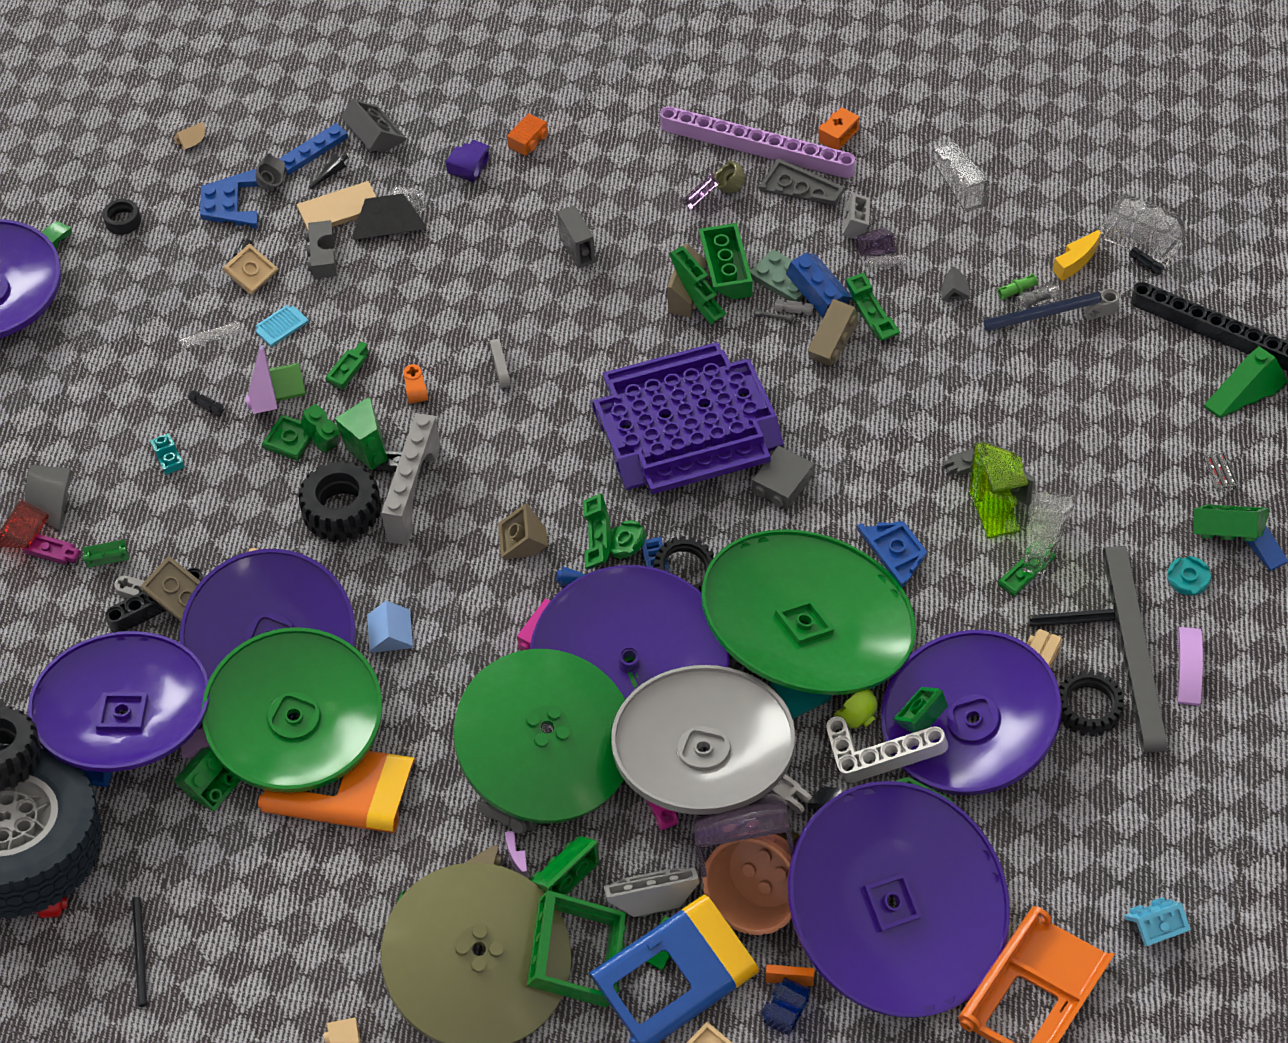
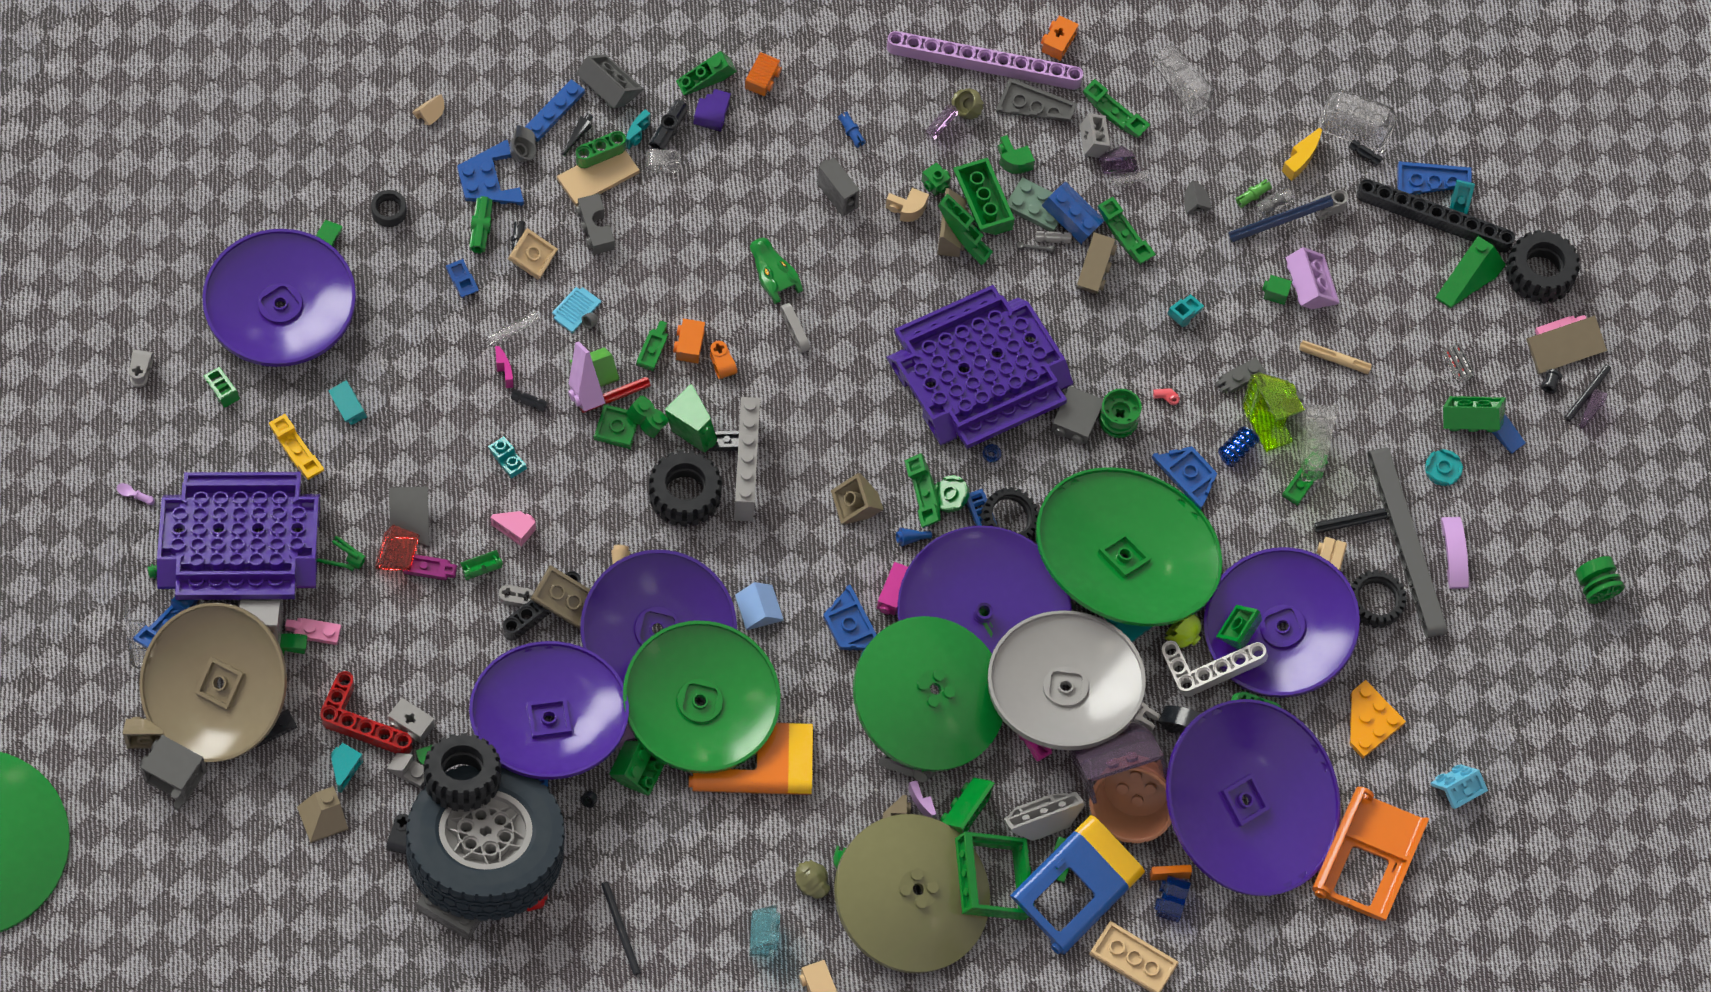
camera: 20 degrees left, 10 degrees up
(21, 385) = (347, 403): none -> teal hinge
(146, 805) = (593, 799): none -> black hinge
(152, 518) = (514, 525): none -> bright pink slope
(174, 285) = (461, 278): none -> blue slope
(188, 369) = (503, 365): none -> dark pink slope
(207, 239) = (481, 224): none -> green piece
(290, 335) = (589, 320): none -> dark grey hinge
(296, 977) = (763, 931): none -> clear light blue slope
(297, 406) = (624, 391): none -> red axle
(344, 182) = (605, 142): none -> green beam
(367, 925) = (812, 879): none -> olive hair
(387, 216) = (650, 182): black wing -> none
(387, 364) = (690, 340): none -> orange brick
(391, 166) = (634, 134): none -> teal slope
(421, 169) = (673, 117): none -> black piece
(476, 127) = (707, 73): none -> green slope
(479, 650) = (849, 622): none -> blue wing
(492, 308) = (773, 270): none -> green animal
(606, 191) = (851, 129): none -> blue pin
(649, 265) = (909, 209): none -> tan brick
(678, 236) = (936, 179): none -> green brick
(681, 500) = (991, 448): none -> clear blue plate
(768, 233) = (1012, 160): none -> green brick
(828, 478) = (1120, 413): none -> green wheel
(881, 198) = (1114, 112): none -> green slope
(887, 469) = (1167, 394): none -> coral arm
(921, 388) = (1185, 310): none -> teal brick
(955, 525) = (1238, 445): none -> clear blue piece
(1026, 378) = (1276, 289): none -> green brick
(1062, 835) = (1371, 719): none -> light orange plate
(1067, 372) = (1311, 279): none -> lavender slope
(1081, 451) = (1335, 357): none -> tan axle
(1217, 290) = (1427, 178): none -> blue wing
(1247, 307) = (1462, 196): none -> teal slope

